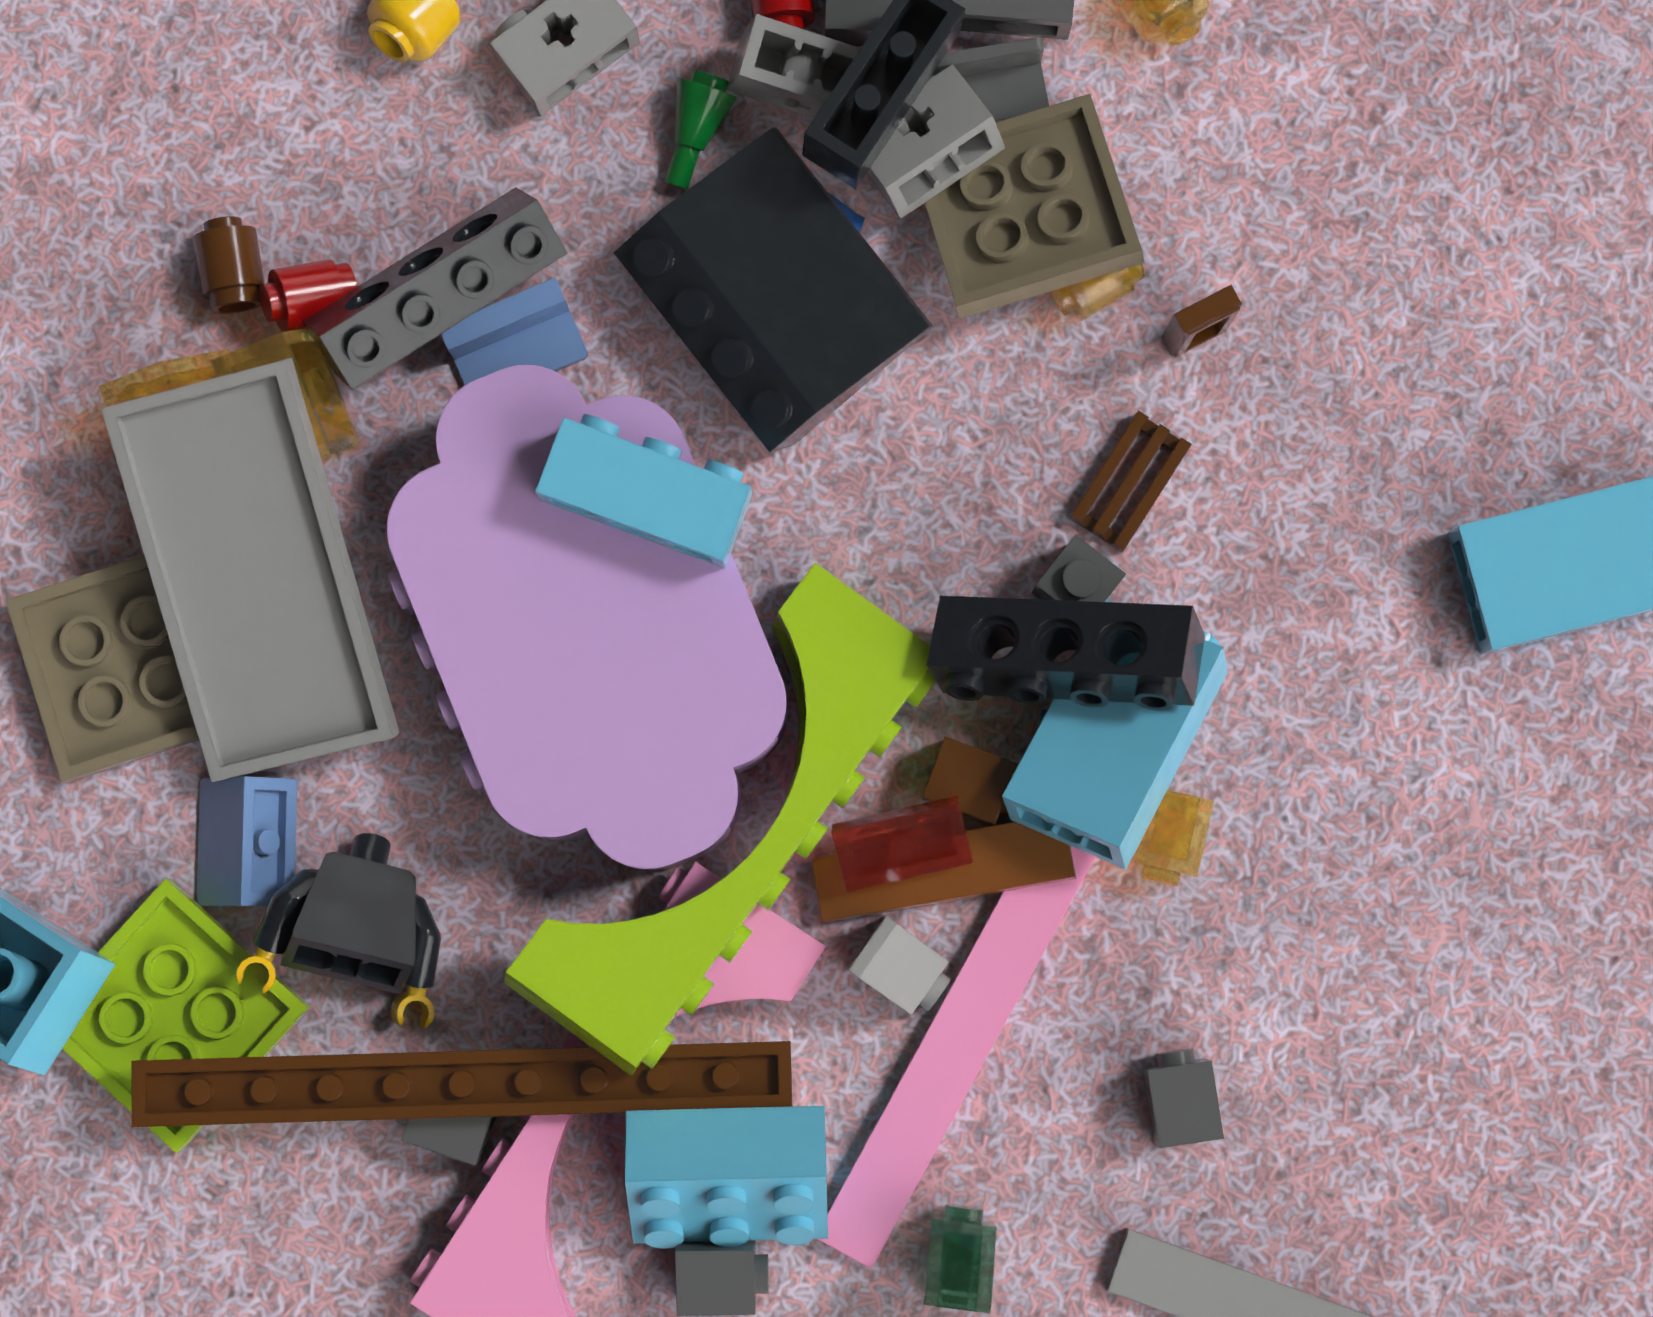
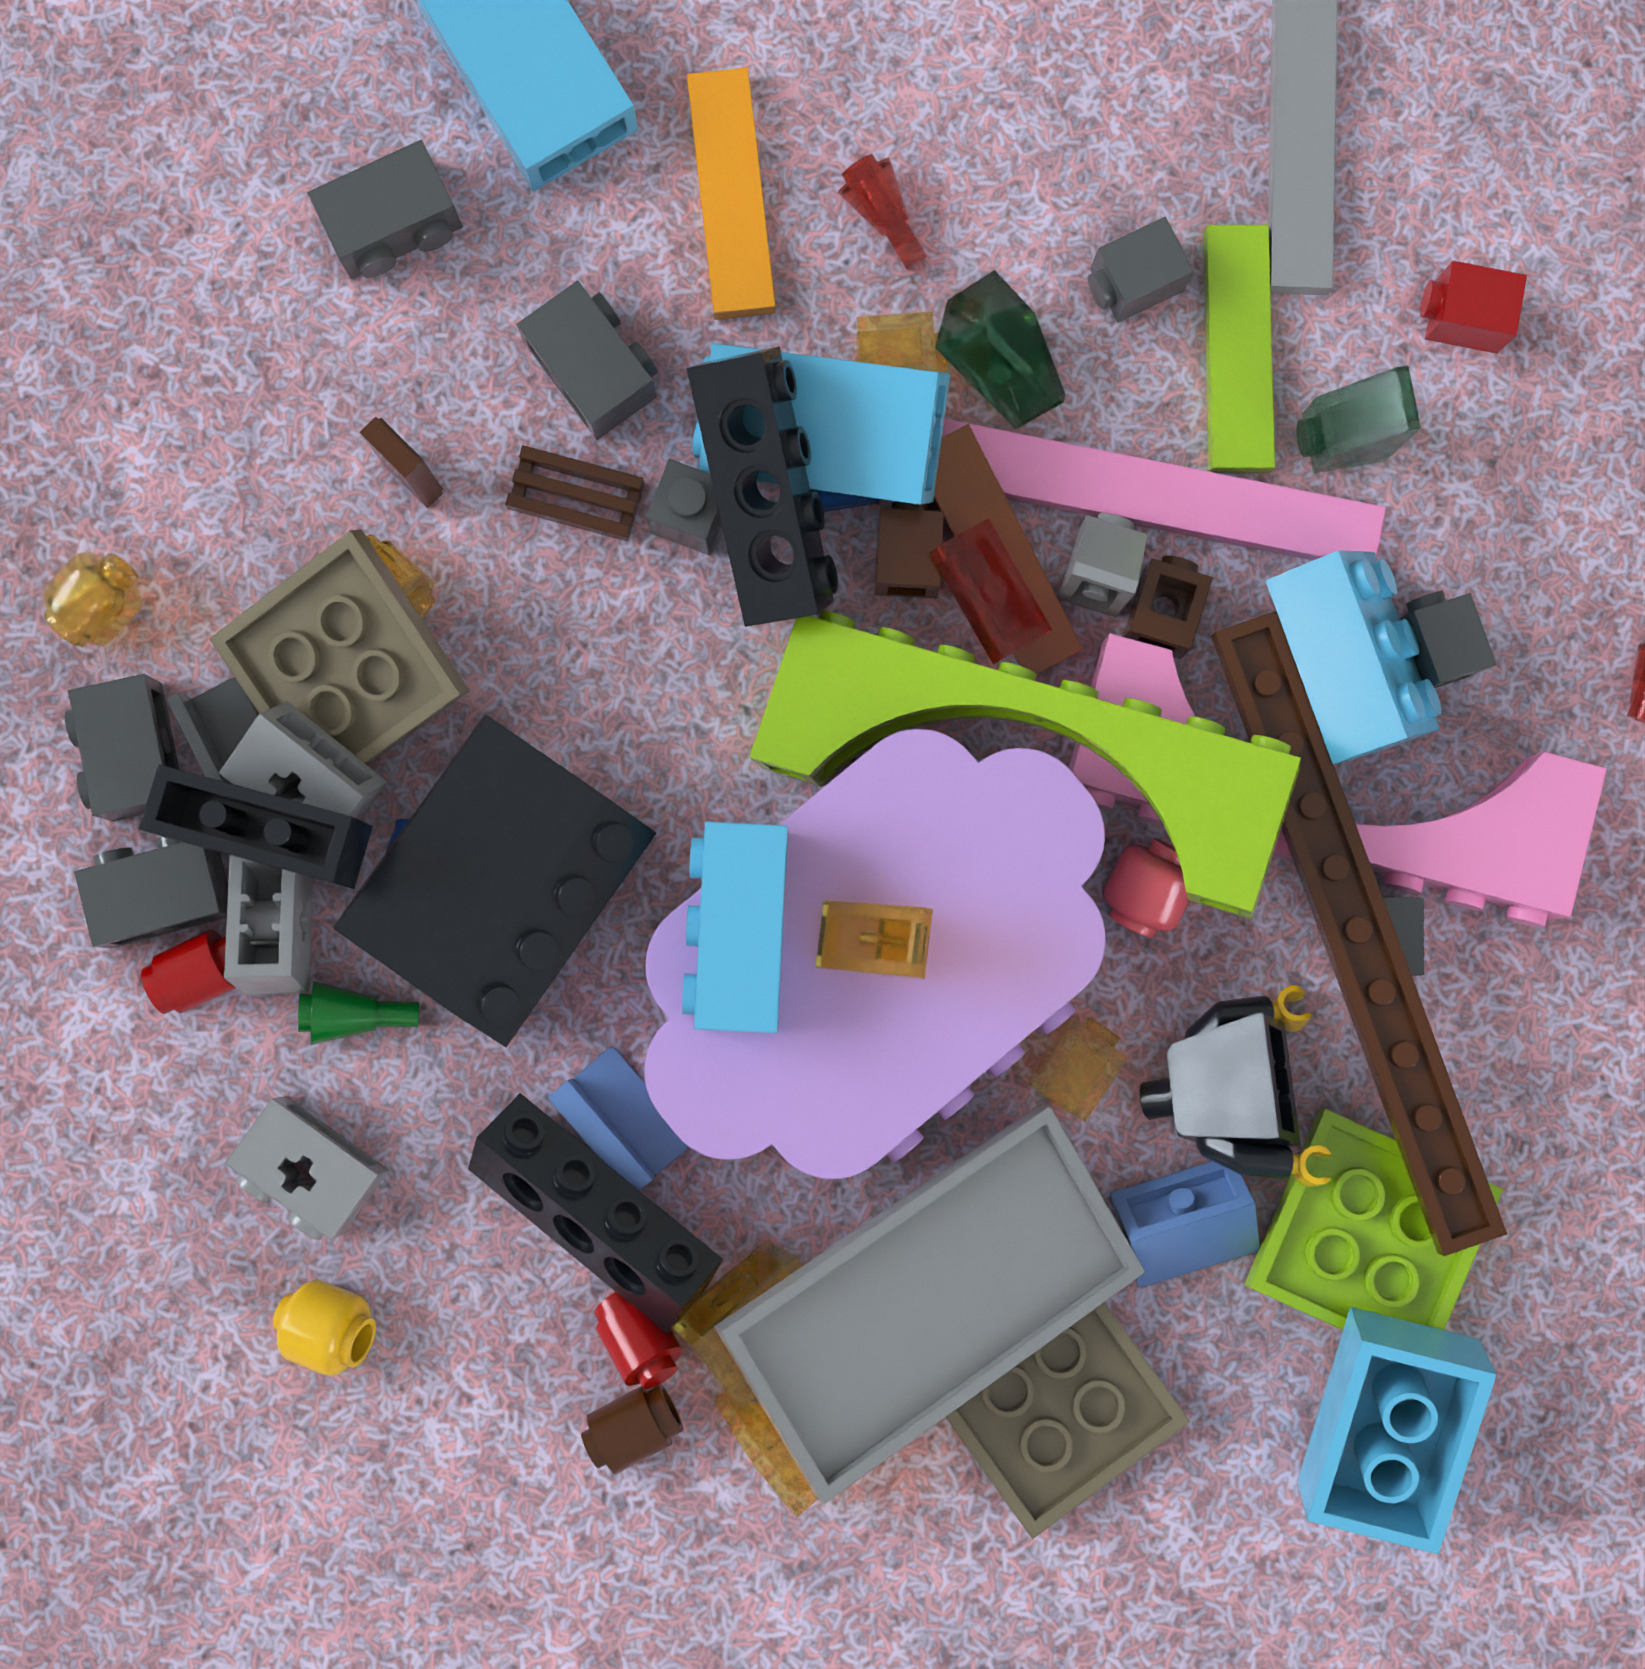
camera: 115 degrees left, 0 degrees up
(423, 784) = (1078, 1067): none -> clear yellow brick
(568, 895) = (1147, 889): none -> coral head
(594, 613) = (874, 939): none -> clear yellow slope
(813, 1012) = (1188, 590): none -> reddish brown brick
(1077, 1178) = (1238, 349): none -> lime tile
(1142, 933) = (1000, 350): none -> clear green slope
(1256, 532) = (589, 359): none -> dark grey brick
(1333, 866) = (876, 196): none -> clear red cone
(1386, 724) = (731, 193): none -> light orange tile
(1461, 382) = (386, 211): none -> dark grey brick

